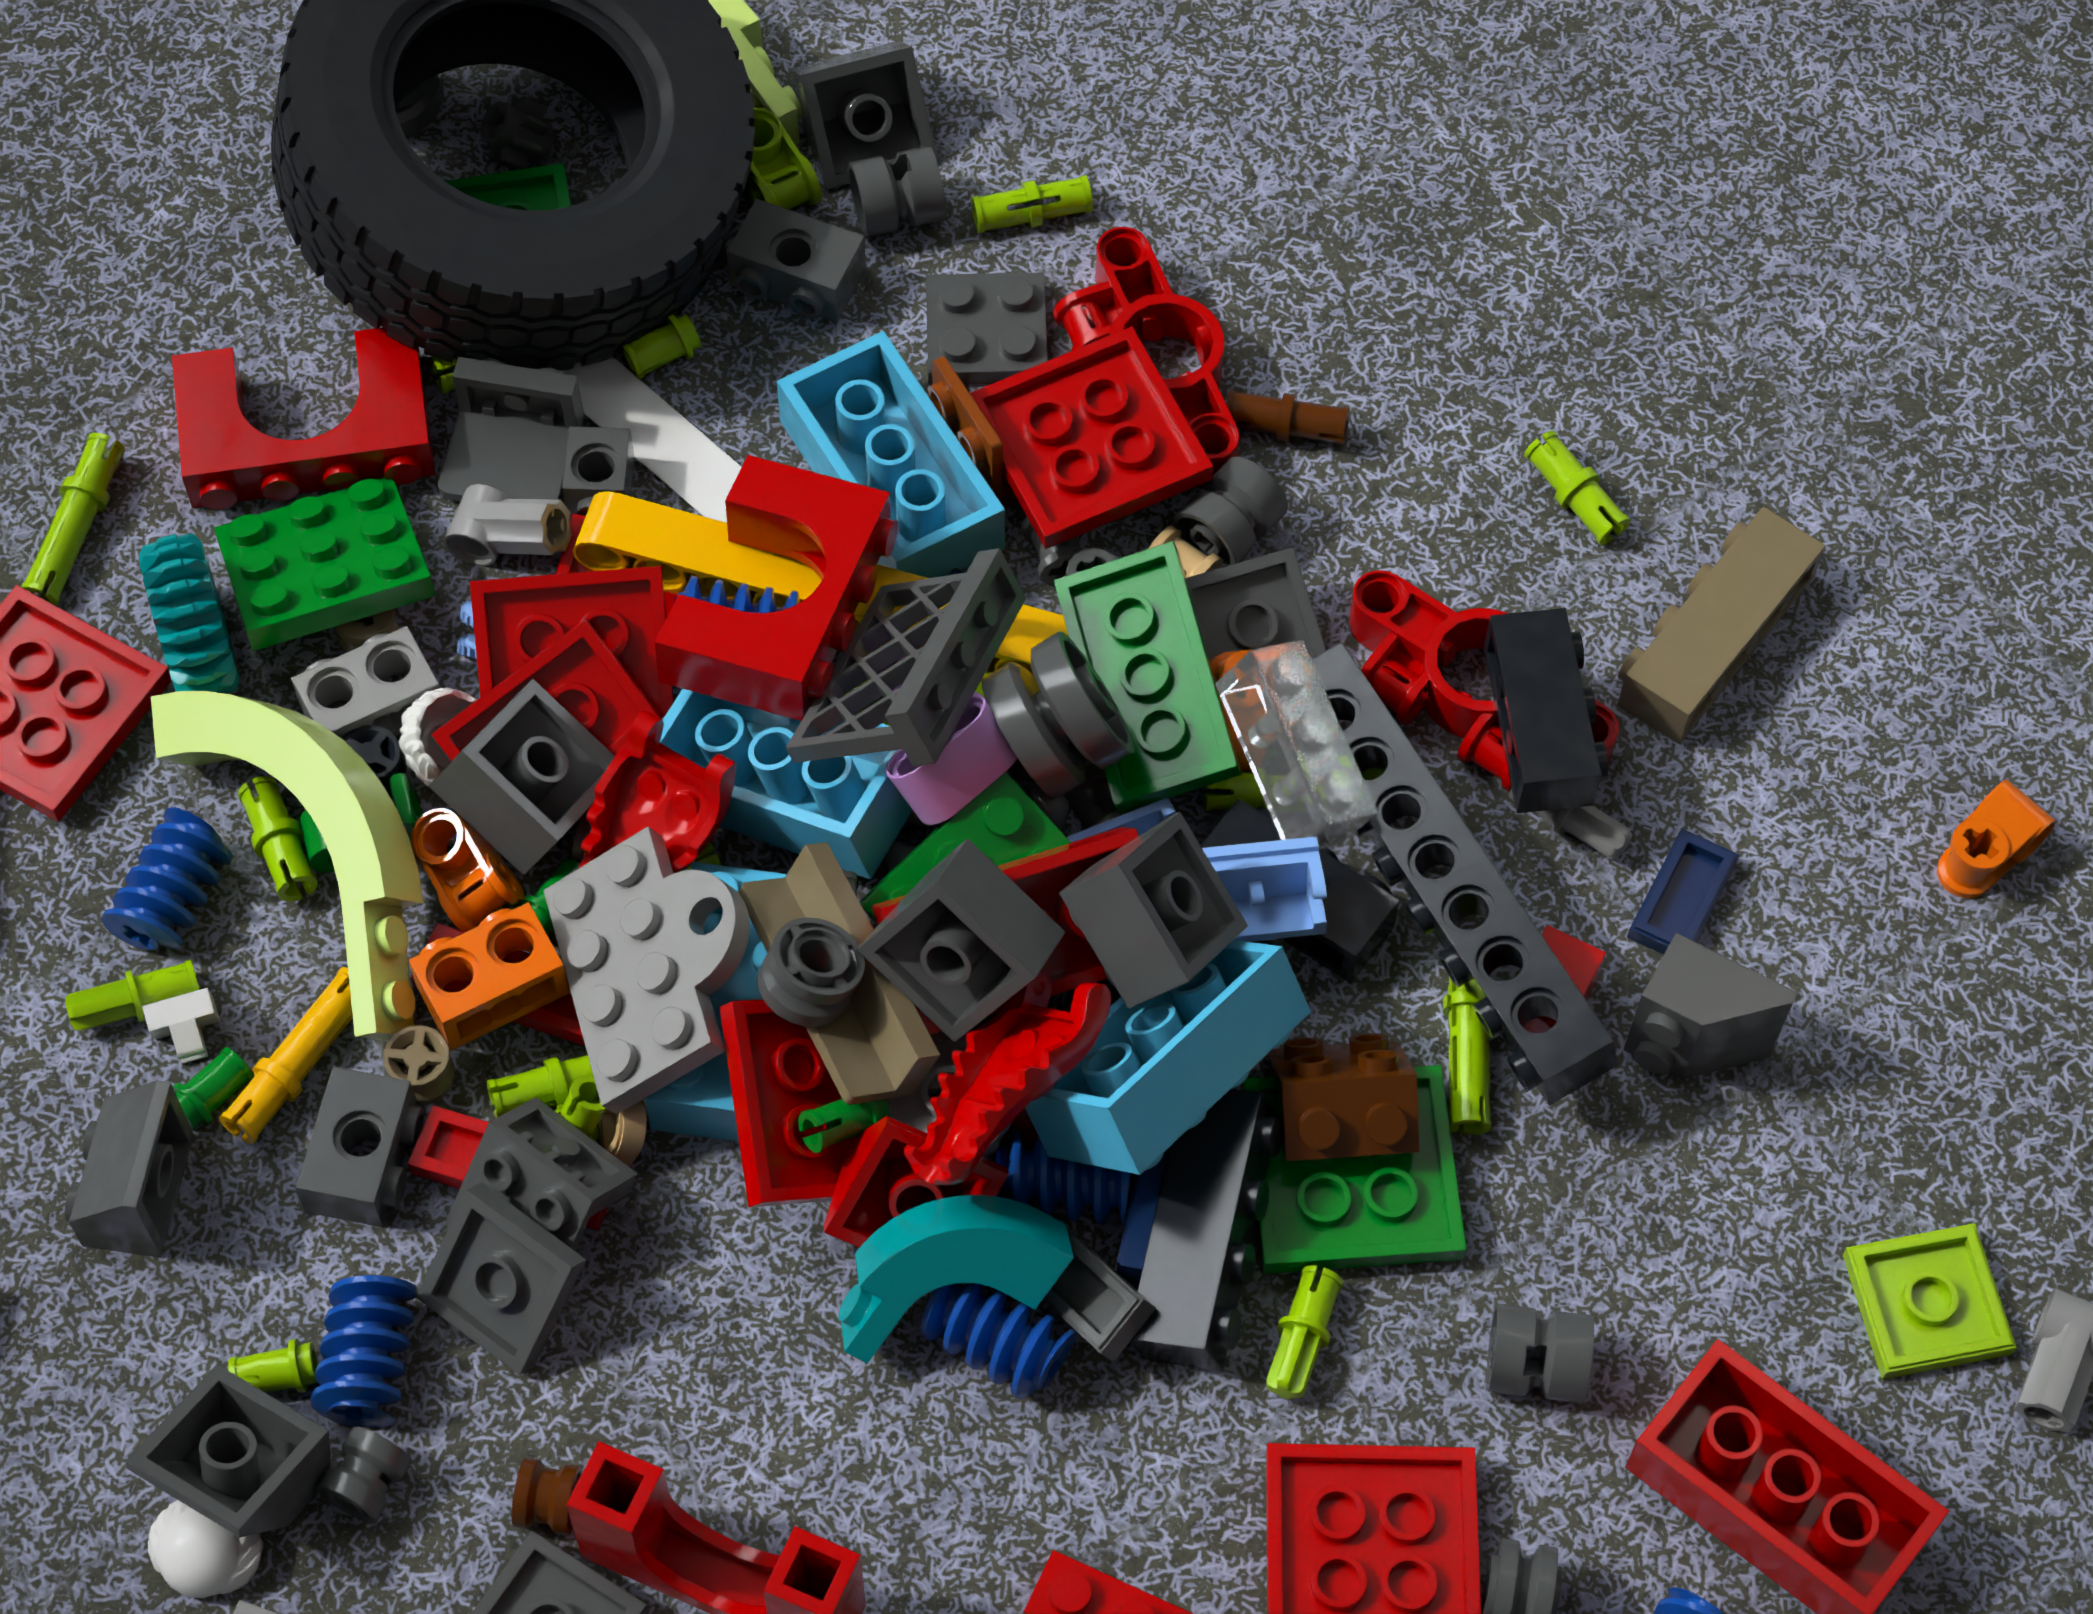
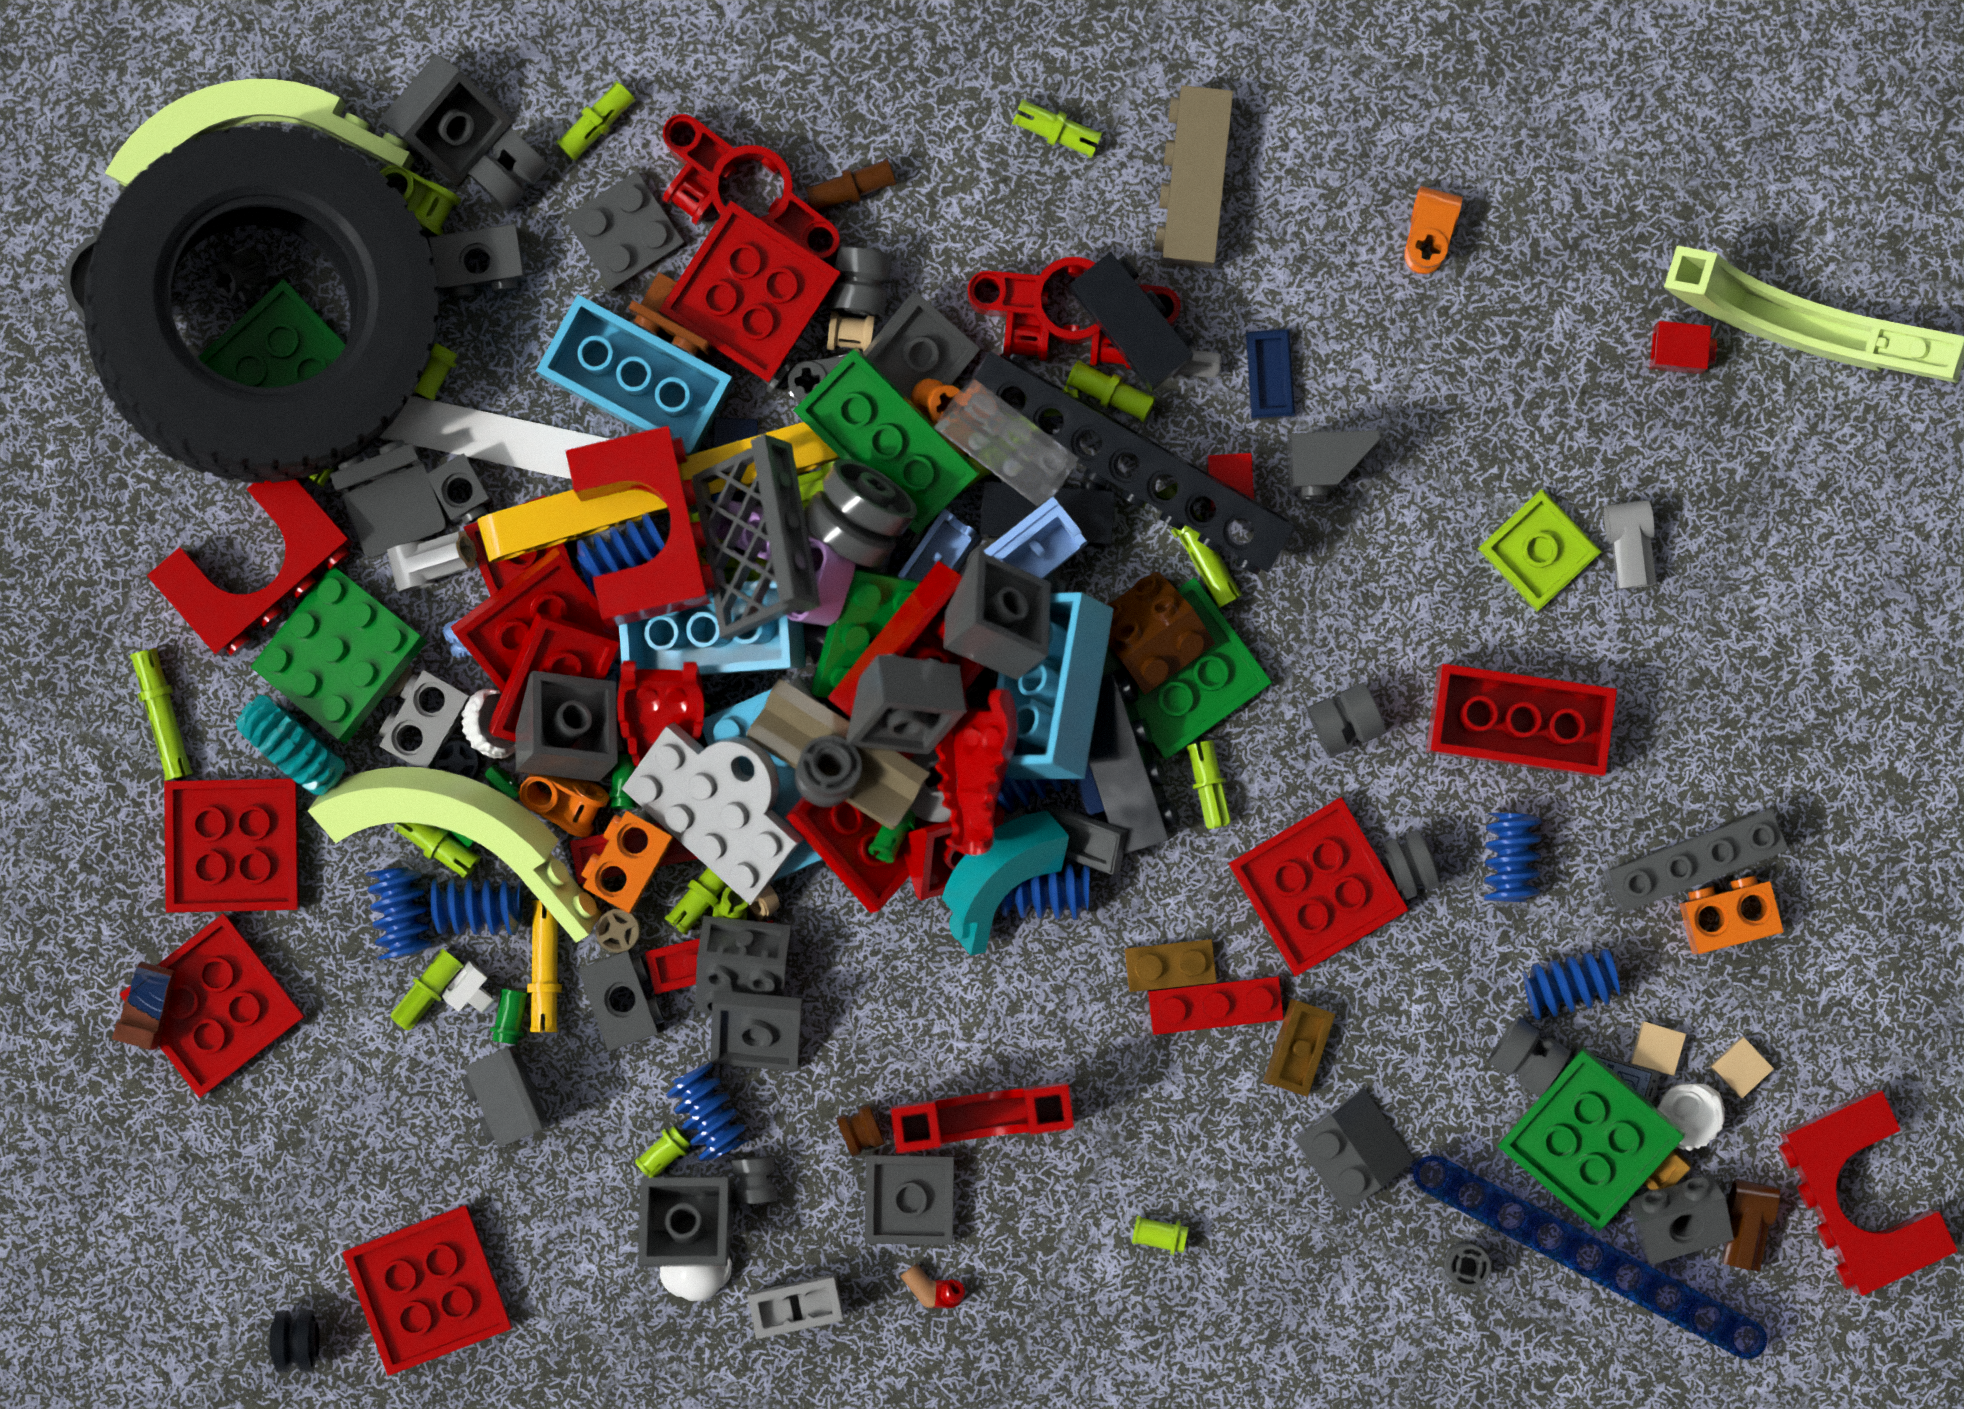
camera: 30 degrees left, 25 degrees up
(266, 934) = (476, 907): none -> blue piece
(1105, 1535) = (1170, 965): none -> pearl gold plate
(1470, 800) = (1111, 390): none -> lime pin

